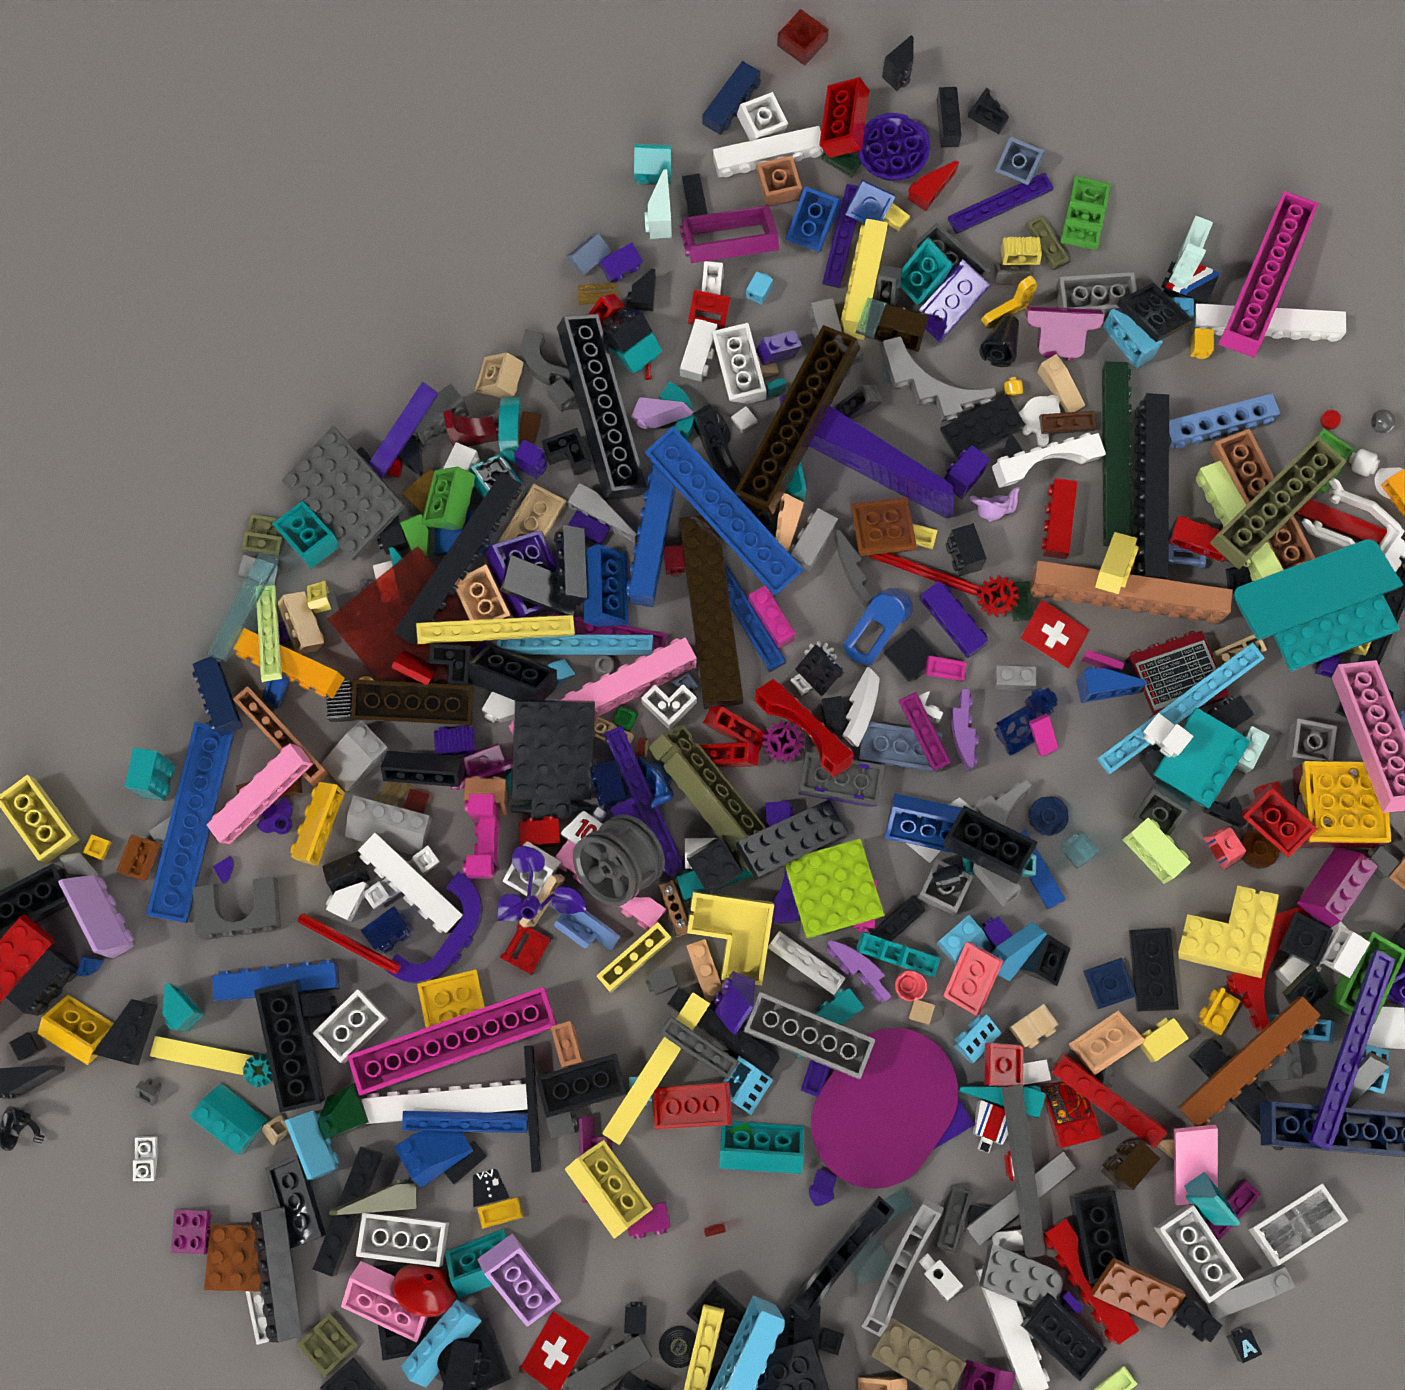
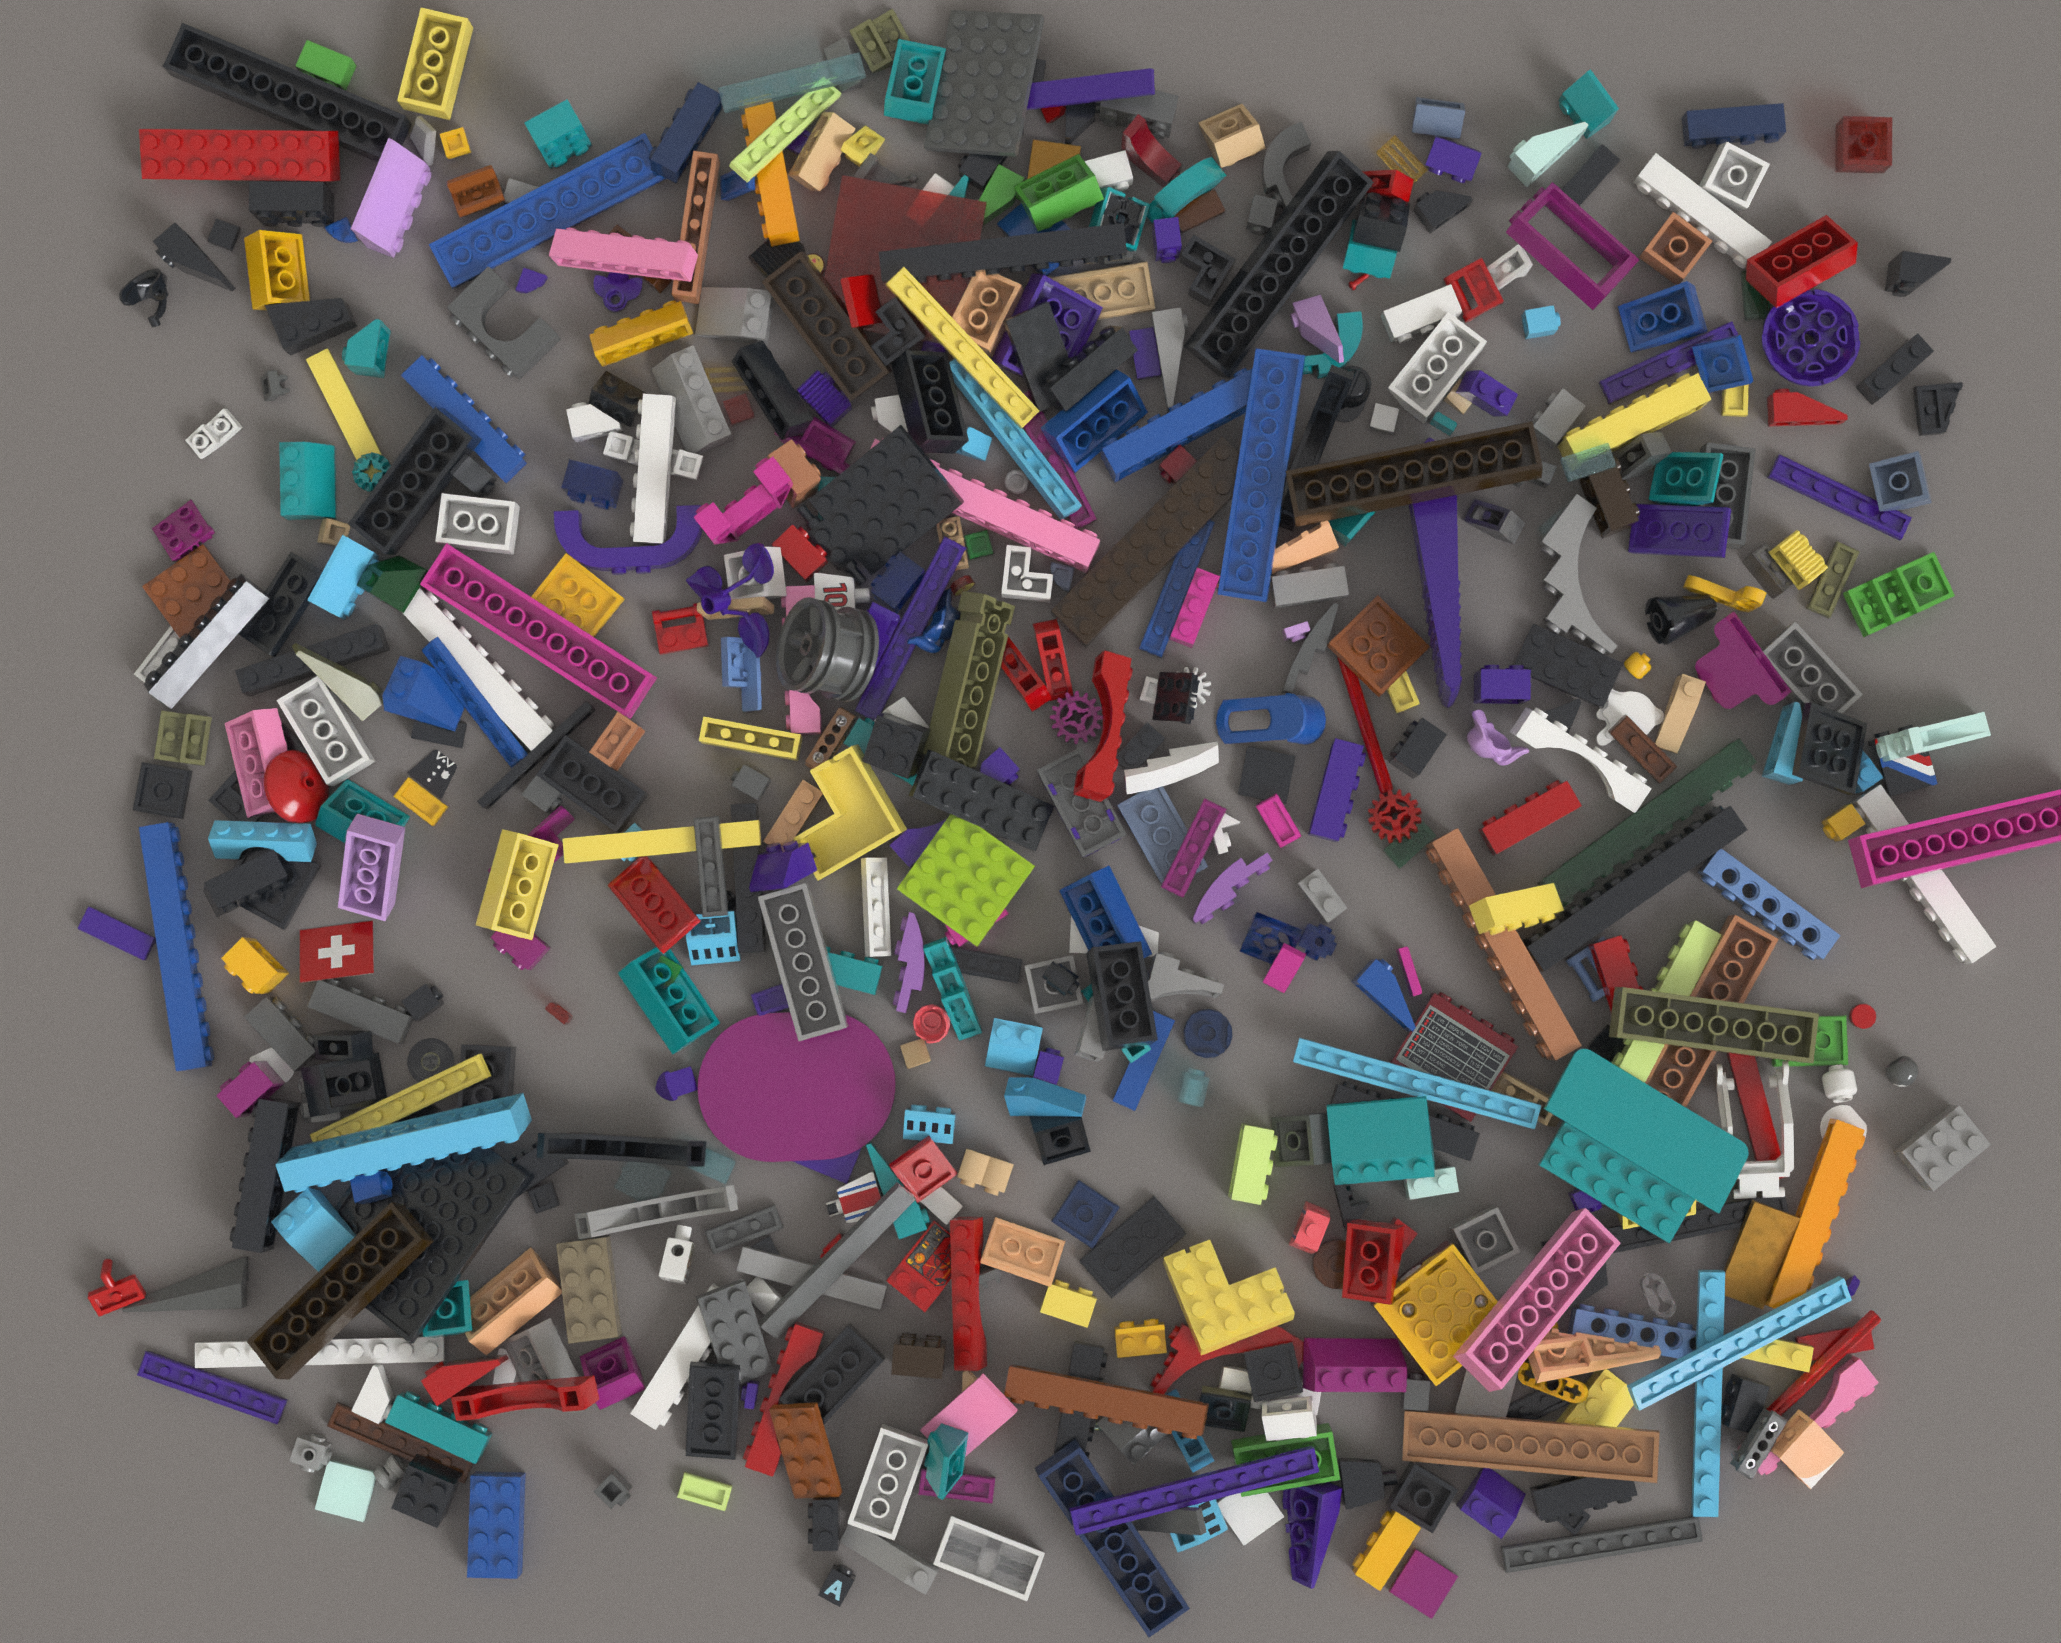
camera: 50 degrees right, 10 degrees up
(349, 943) = (552, 457): red axle -> none
(836, 568) = (1296, 632): none -> lavender plate
(973, 978) = (983, 1077): coral plate -> none
(1055, 634) = (1401, 902): red sticker -> none
(1167, 736) = (1371, 1089): white brick -> none

